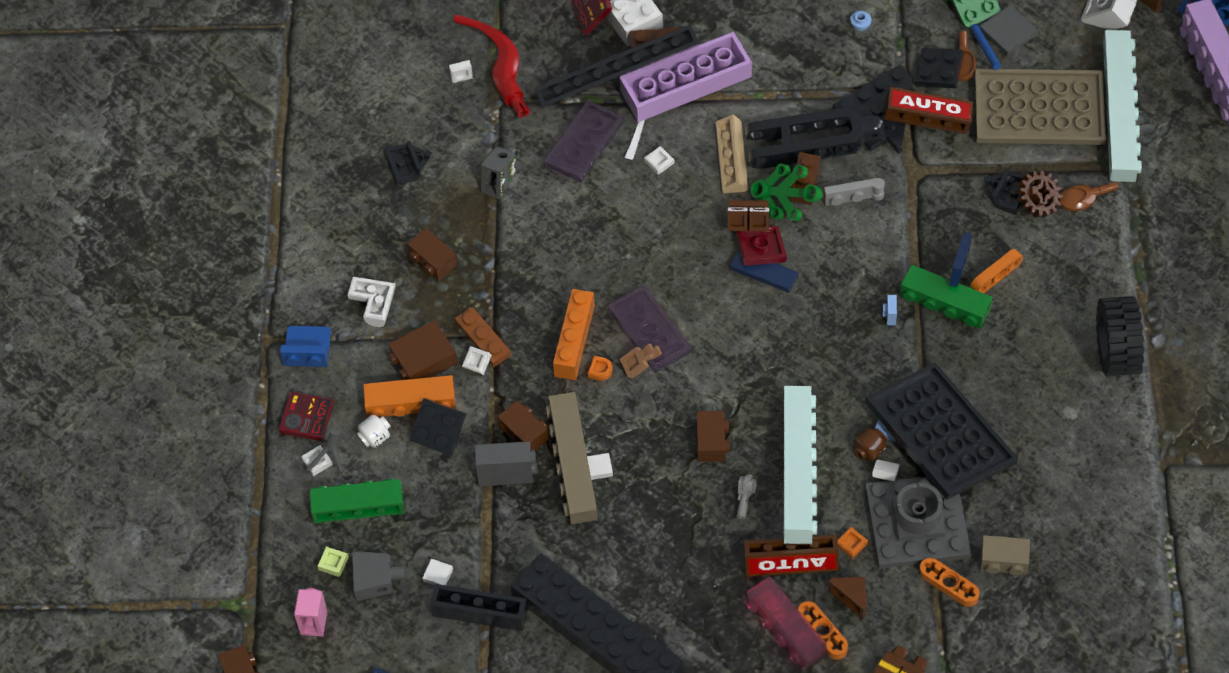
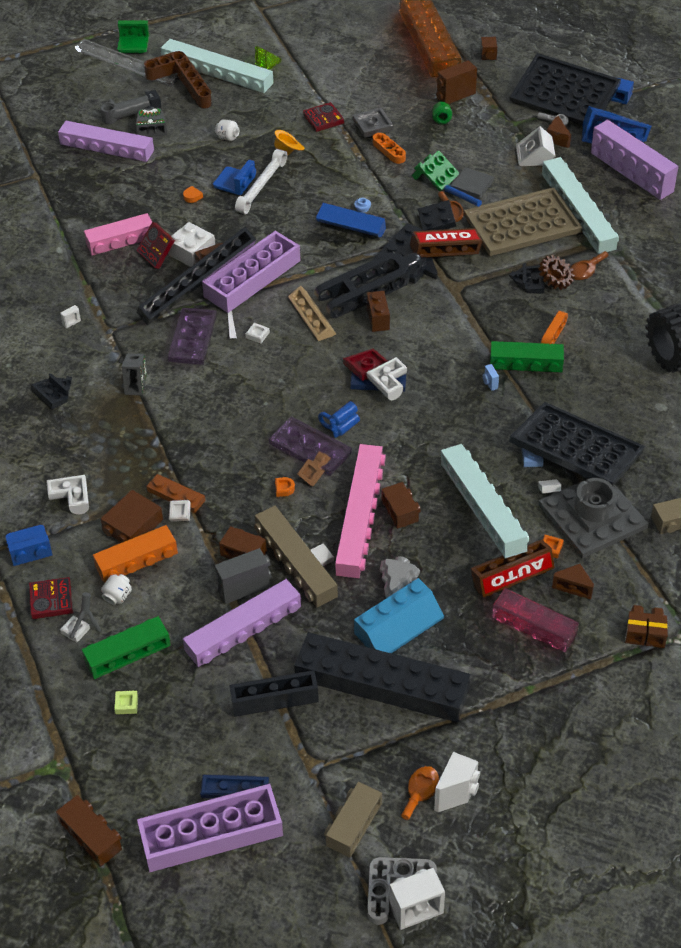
camera: 25 degrees left, 10 degrees down
(311, 612) = (127, 747): bright pink brick -> none
(374, 574) = (168, 699): dark grey torso -> none
(431, 254) = (106, 446): reddish brown brick -> none
(437, 426) = (171, 567): black plate -> none
(437, 573) = (221, 681): white tile -> none
(484, 515) = (242, 623): none -> lavender brick
(505, 67) = (104, 305): red animal -> none
(574, 334) = (252, 467): orange brick -> none
(645, 570) = (398, 618): none -> dark azure slope
(665, 427) = (359, 511): none -> bright pink brick
(667, 519) = (397, 574): none -> light grey rock
(697, 309) = (341, 420): none -> blue piece
(746, 487) = (447, 532): light grey plate -> none
(752, 212) = (349, 345): reddish brown hips -> none
(766, 271) = (385, 378): none -> white brick
(783, 191) = (368, 321): green plant -> none
(821, 619) = (563, 609): orange beam -> none
(834, 41) = (351, 220): none -> blue brick
(854, 191) = (419, 309): light grey plate -> none
(869, 444) = (526, 472): reddish brown head -> none
(931, 578) = (638, 542): orange beam -> none
(960, 259) = (525, 327): dark blue tile -> none

